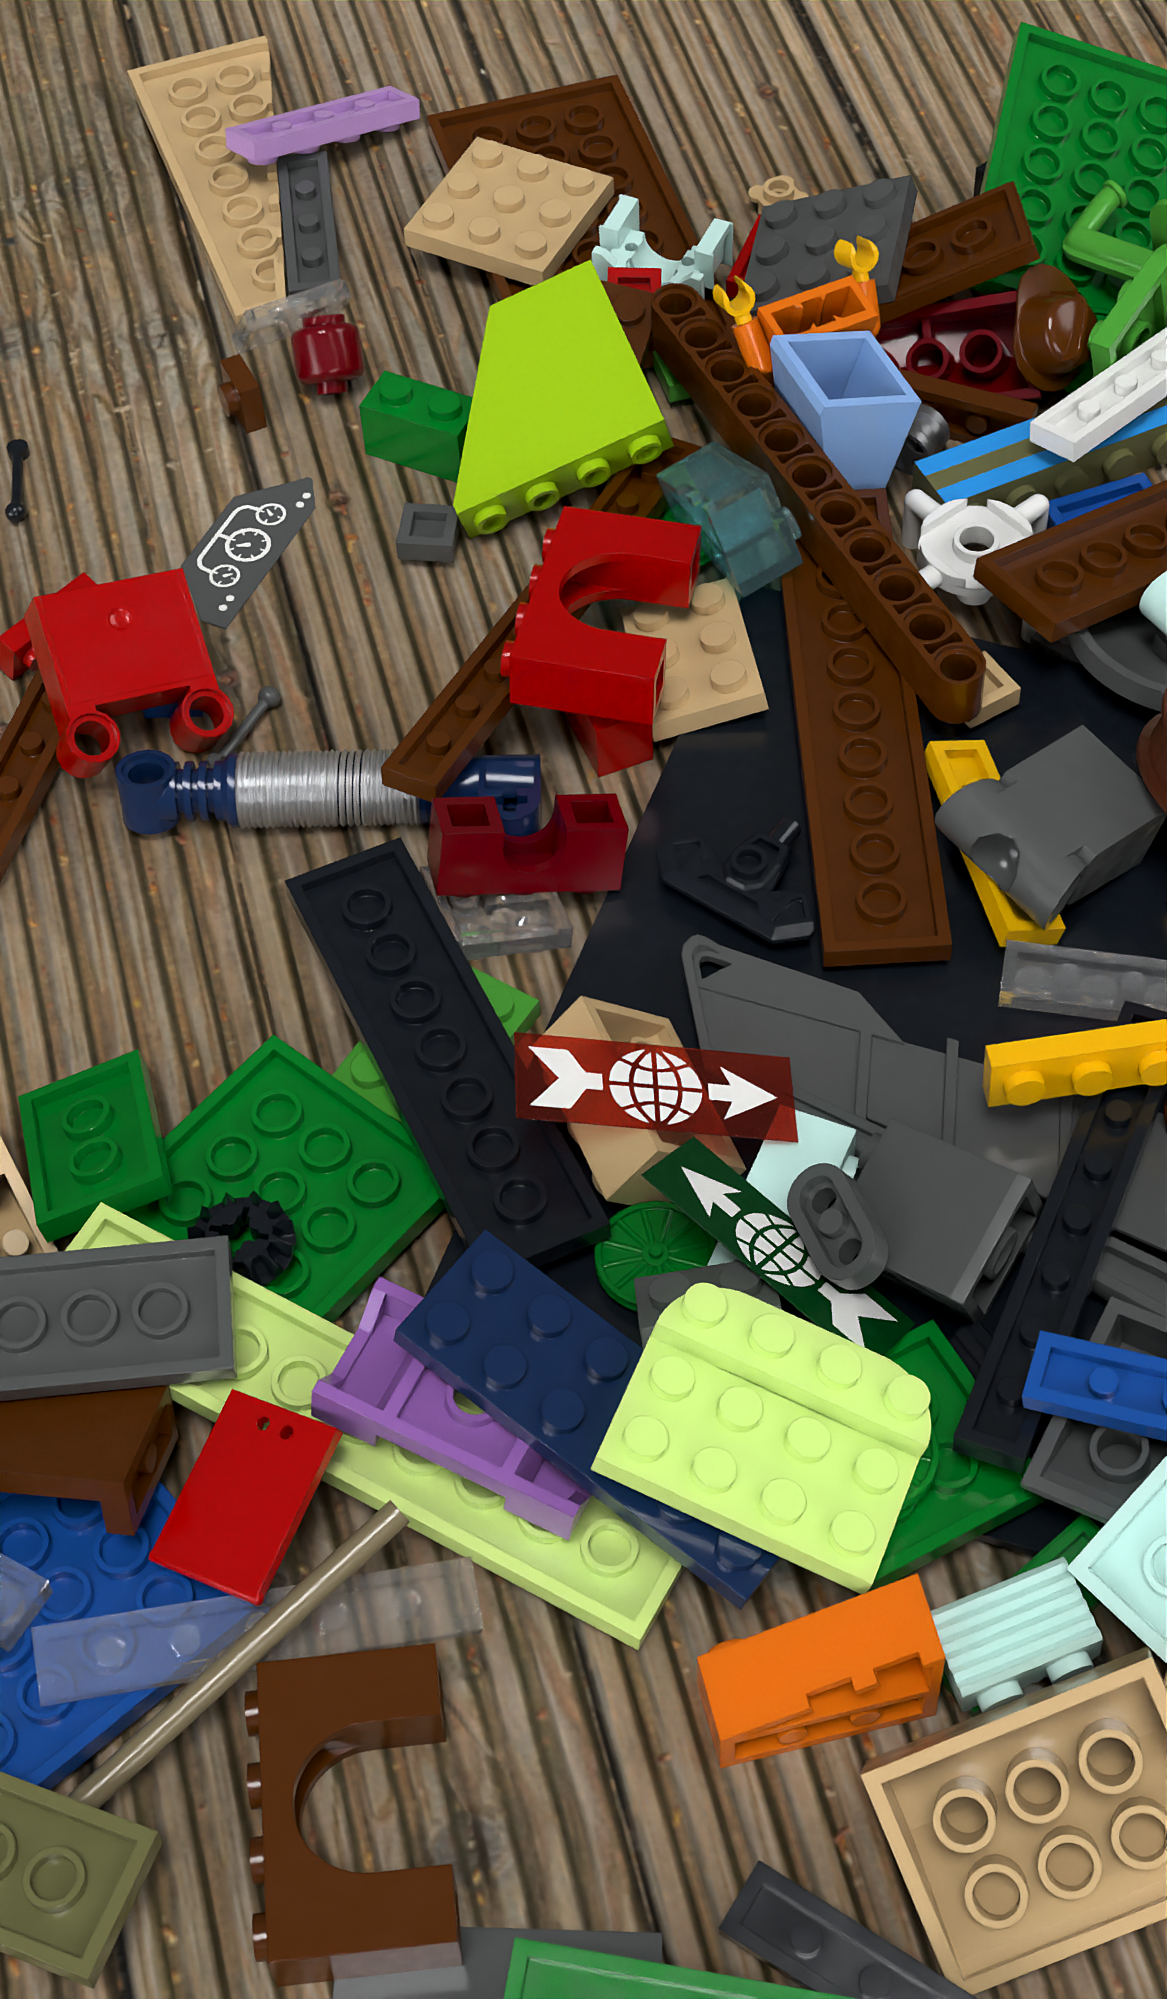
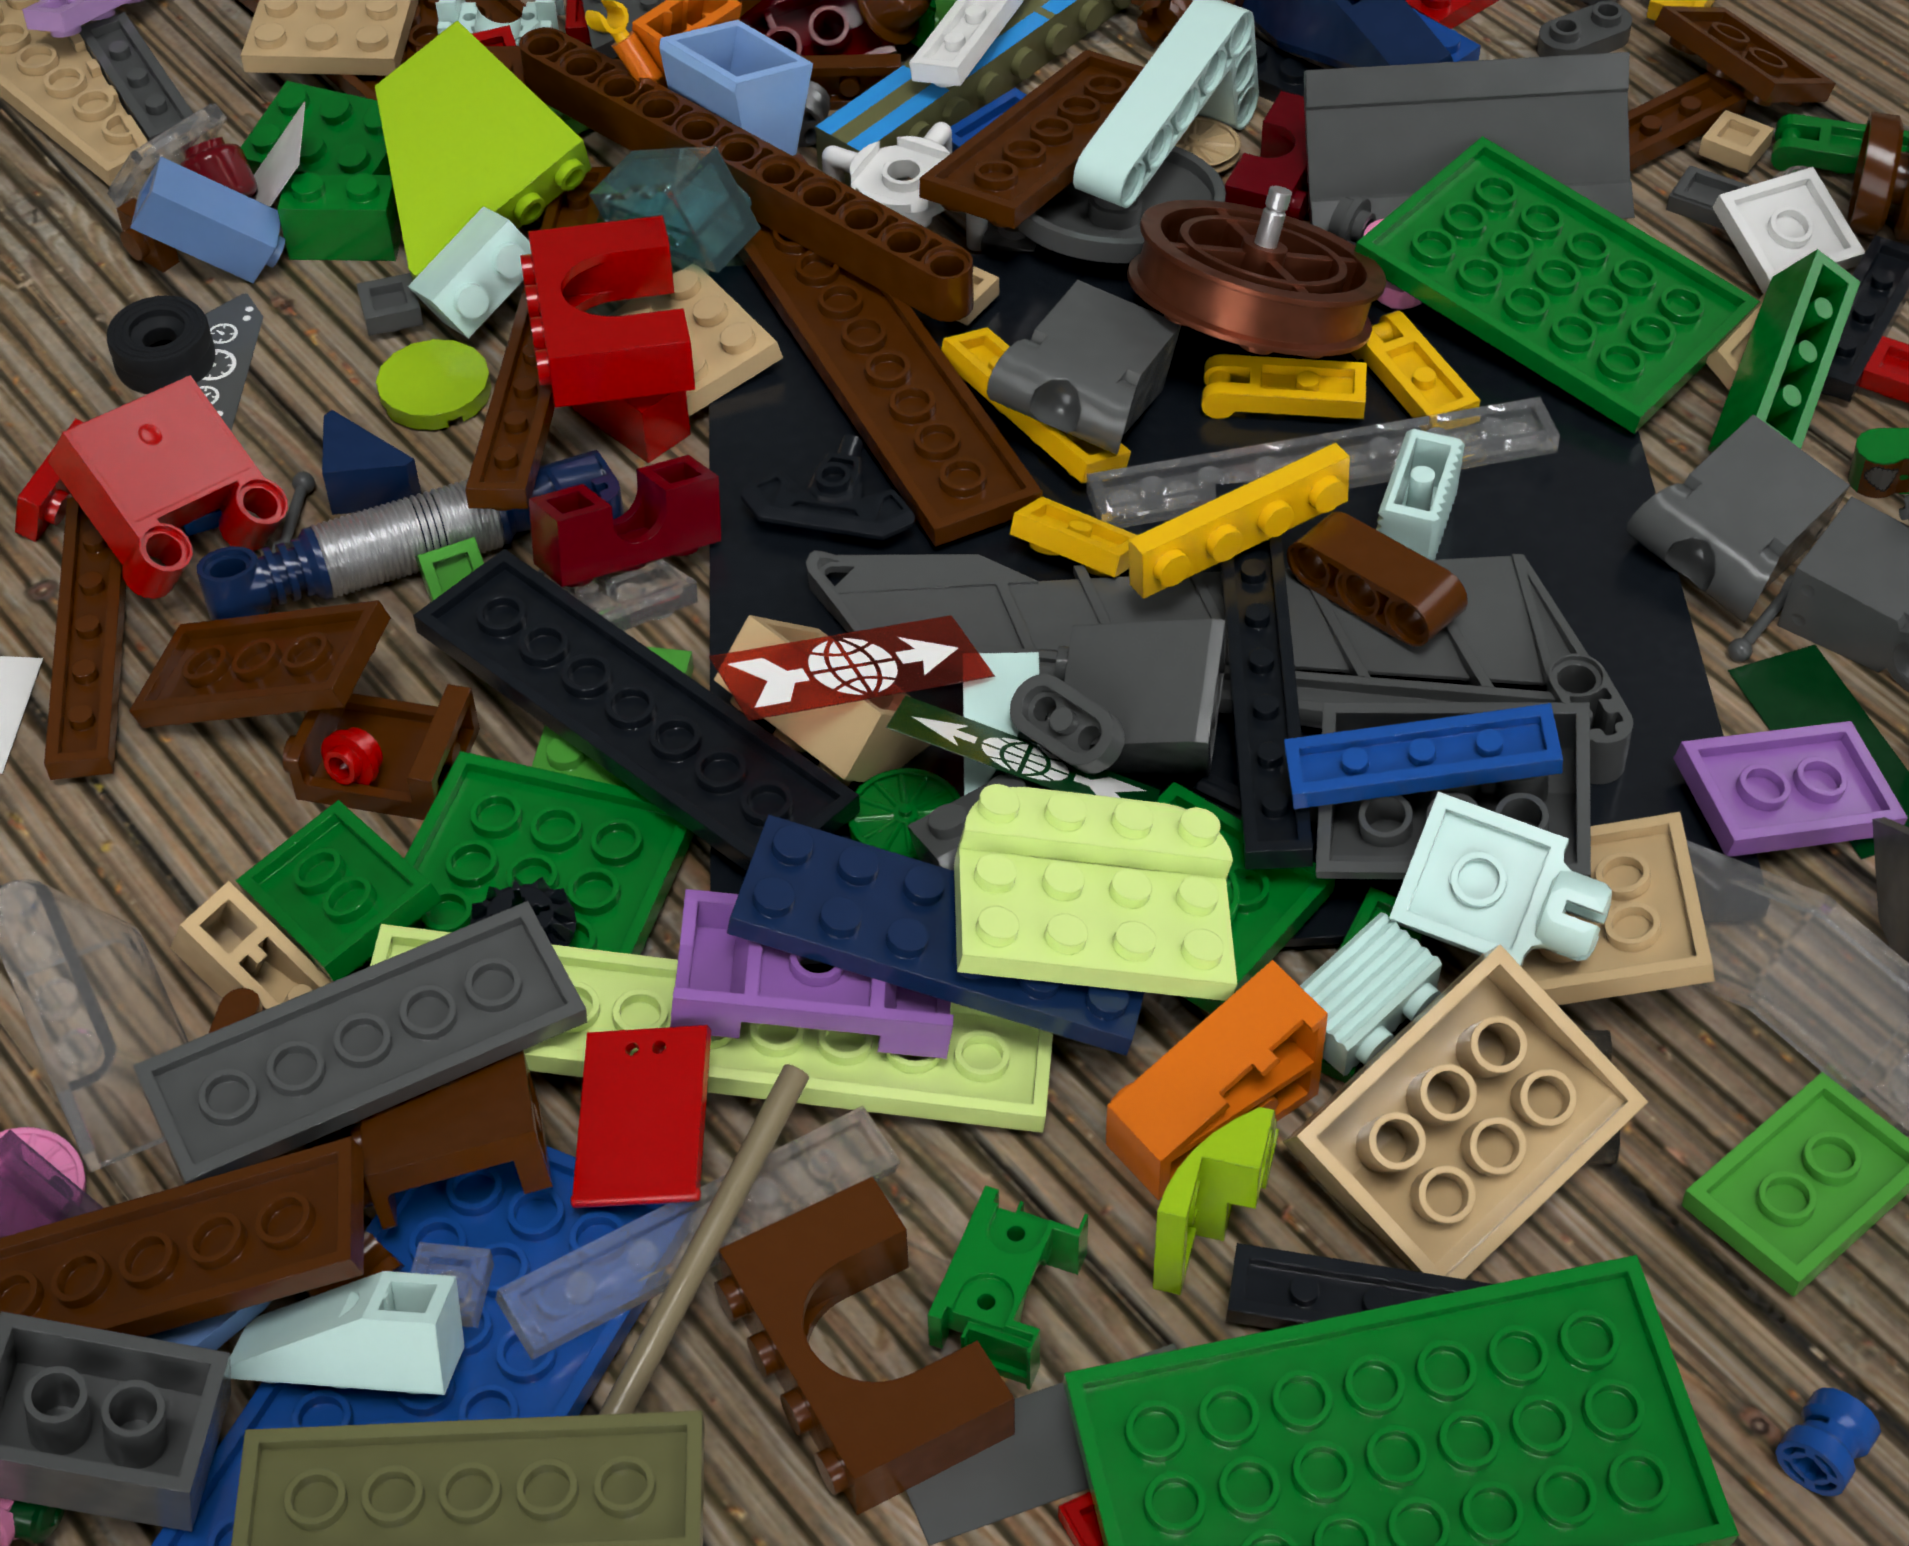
camera: 25 degrees left, 5 degrees down
(131, 885) = (261, 665): none -> reddish brown plate
(172, 1007) = (351, 756): none -> red plate
(199, 488) = (156, 322): none -> black tyre
(206, 1001) = (416, 747): none -> reddish brown panel
(293, 399) = (208, 221): none -> medium blue brick
(319, 704) = (363, 468): none -> dark blue slope
(352, 833) = (448, 565): none -> bright green plate
(377, 364) = (280, 161): none -> white sticker
(431, 628) = (433, 384): none -> lime tile
(433, 332) = (338, 134): none -> green plate
(507, 526) = (473, 272): none -> light aqua brick
(507, 1793) = (991, 1279): none -> green piece
(759, 1791) = (1201, 1194): none -> lime slope
(963, 1003) = (1075, 535): none -> yellow plate

